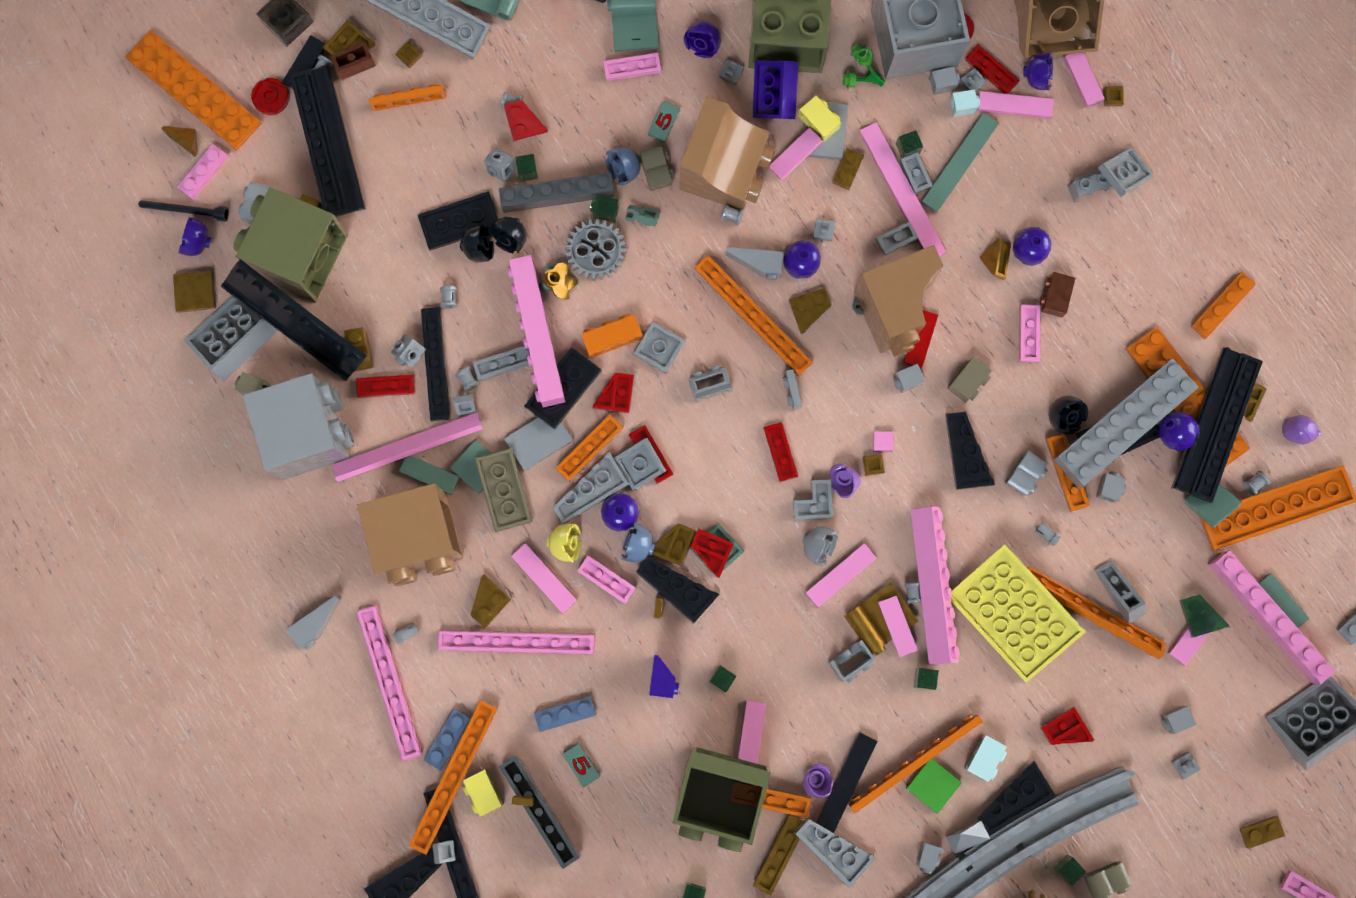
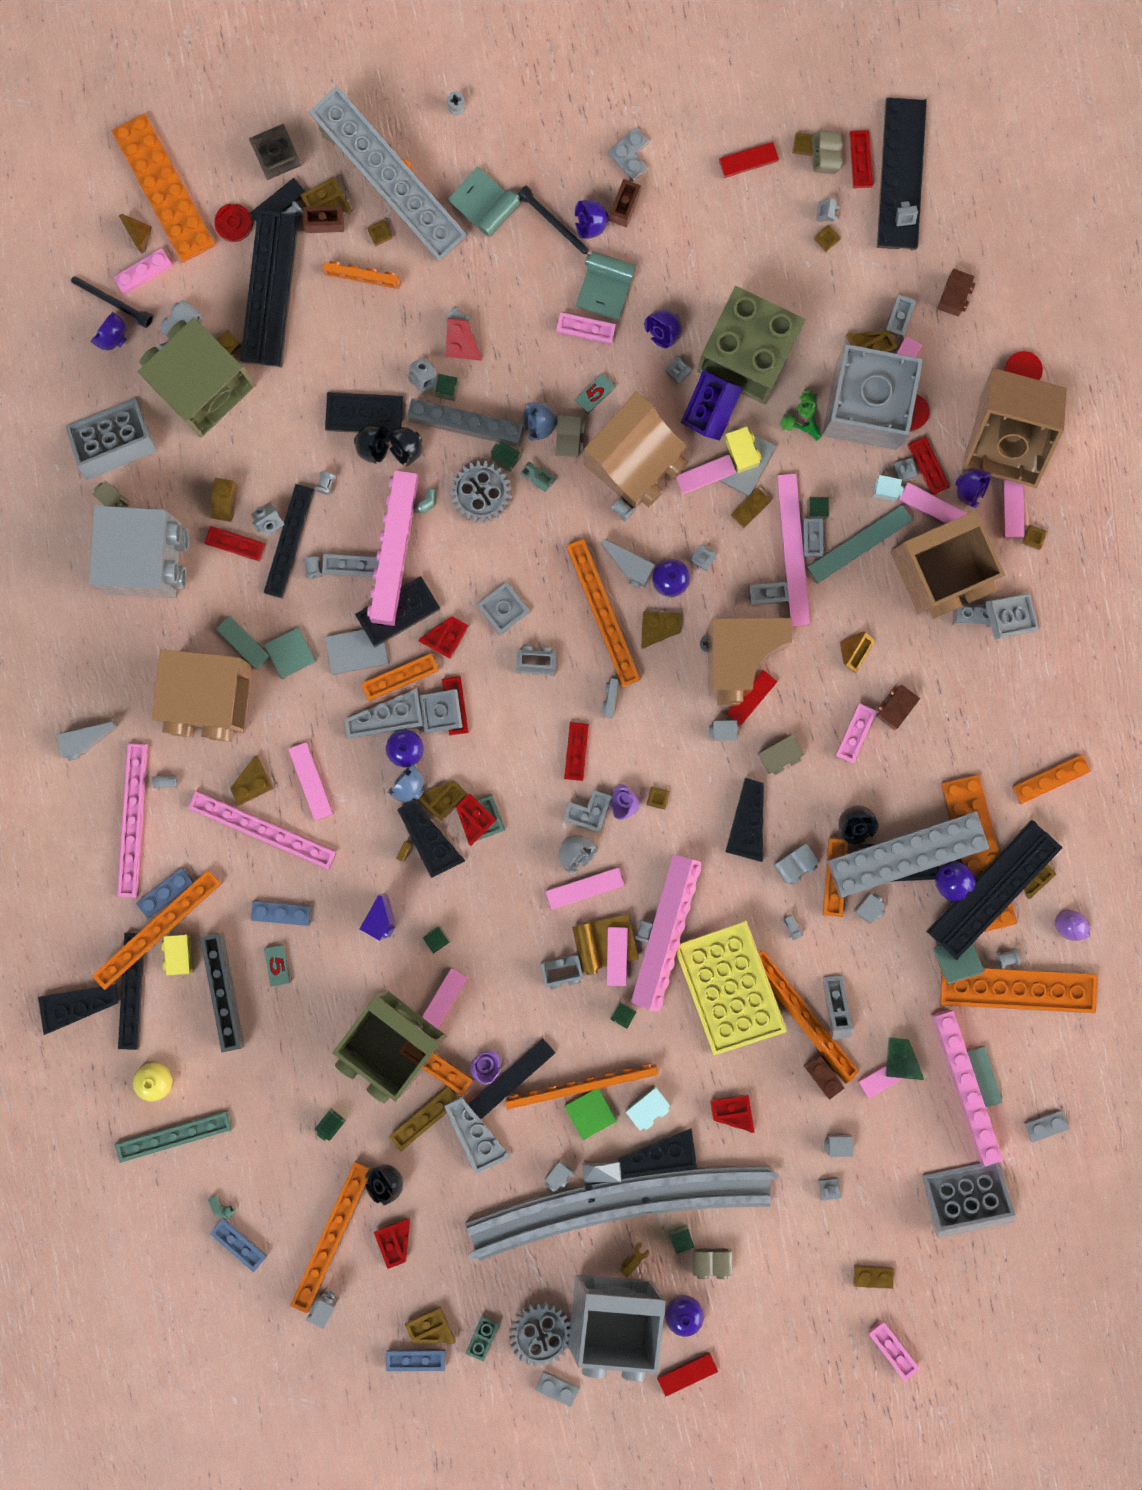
camera: 25 degrees right, 5 degrees up
(194, 291) = (91, 383): pearl gold tile -> none
(293, 320) = (170, 450): black plate -> none
(407, 447) = (232, 609): bright pink tile -> none
(443, 852) = (121, 993): light grey plate -> none
(464, 404) = (300, 590): light grey tile -> none
(503, 489) = (305, 684): dark tan tile -> none
(522, 800) = (209, 977): pearl gold tile -> none
(561, 280) = (437, 509): plate -> none
(564, 542) = (341, 757): light yellow cylinder -> none
(606, 579) = (367, 806): bright pink plate -> none
(611, 335) = (463, 579): orange brick -> none
(882, 441) = (676, 779): bright pink tile -> none
(944, 80) = (877, 459): light grey brick -> none
(1032, 246) = (893, 651): dark purple cylinder -> none
(1052, 146) = (949, 564): none -> medium nougat piece
(1136, 661) = (824, 1077): none -> copper brick

